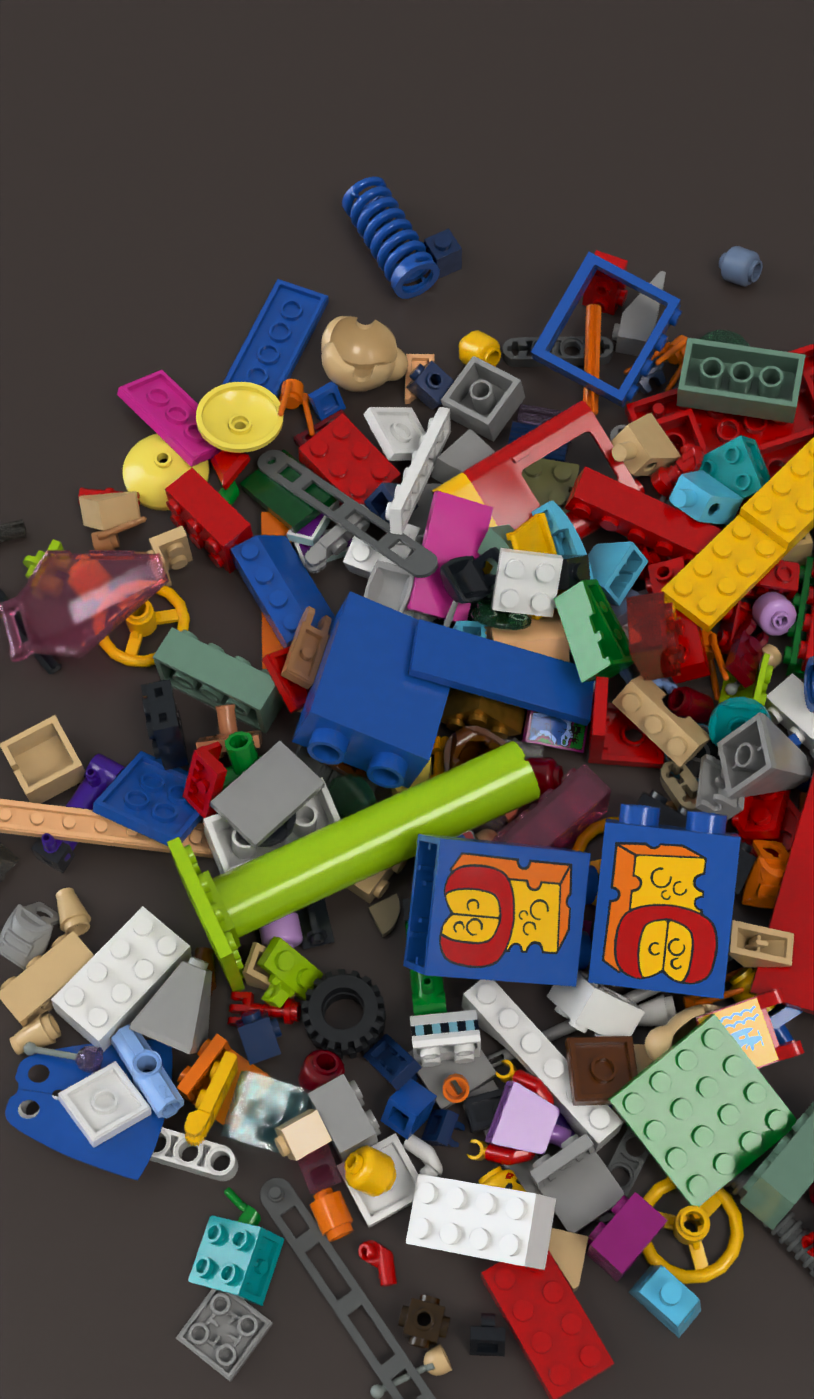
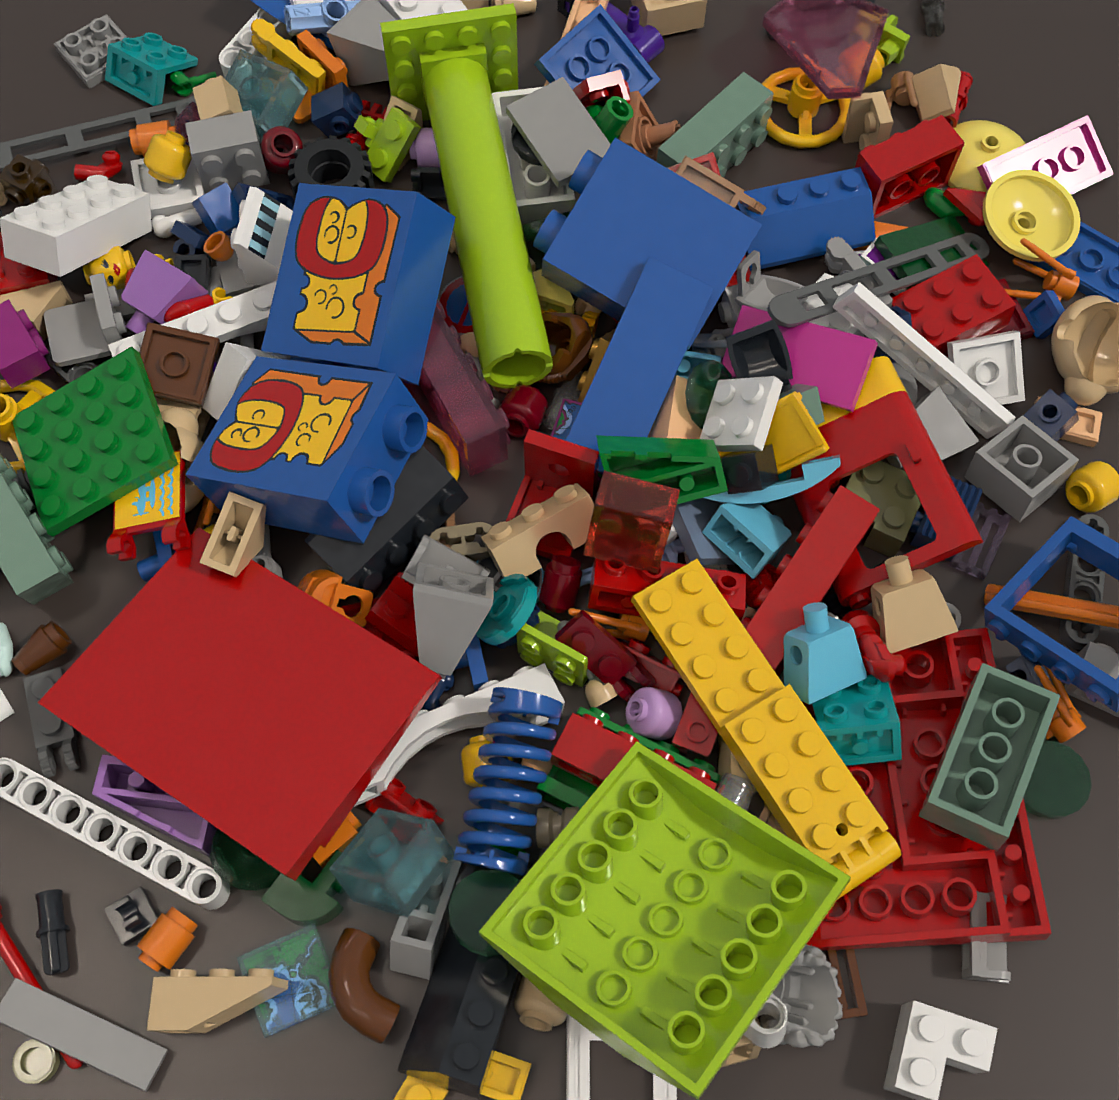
camera: 100 degrees right, 0 degrees up
(164, 724) = (677, 84): black piece -> none

